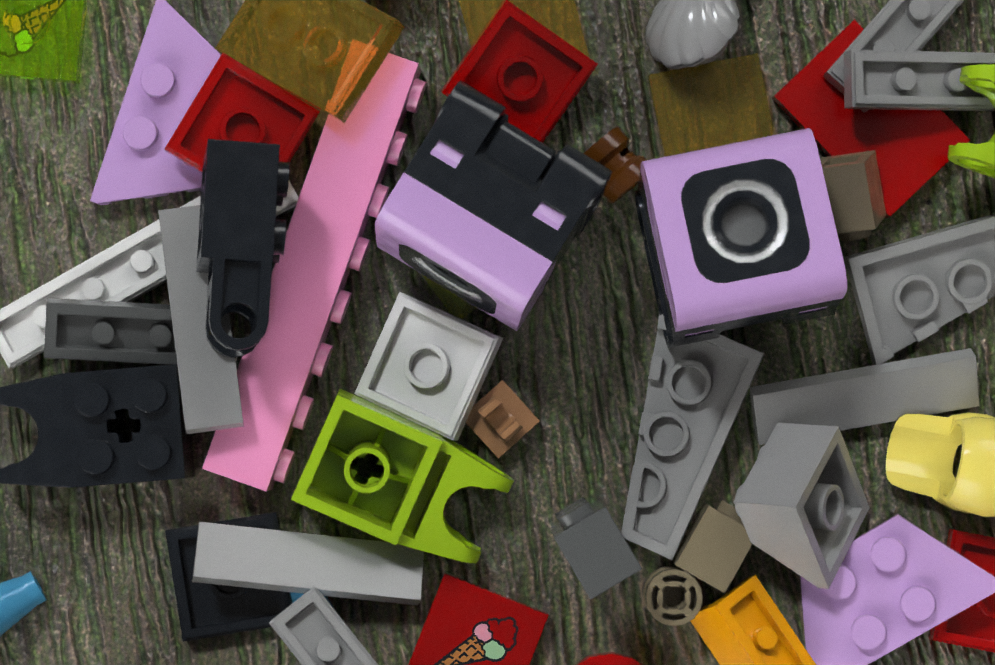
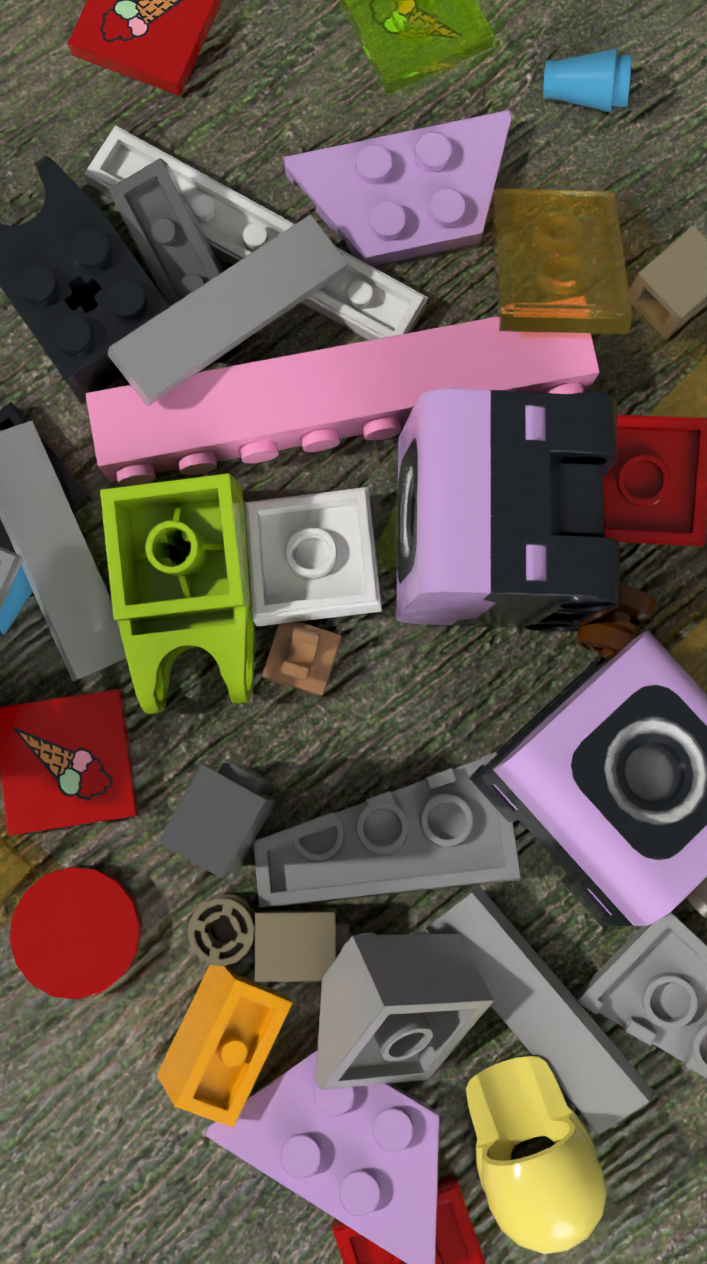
camera: 55 degrees right, 5 degrees down
(240, 236) = (326, 283): black brick -> none
(243, 108) = (433, 250): red tile -> none

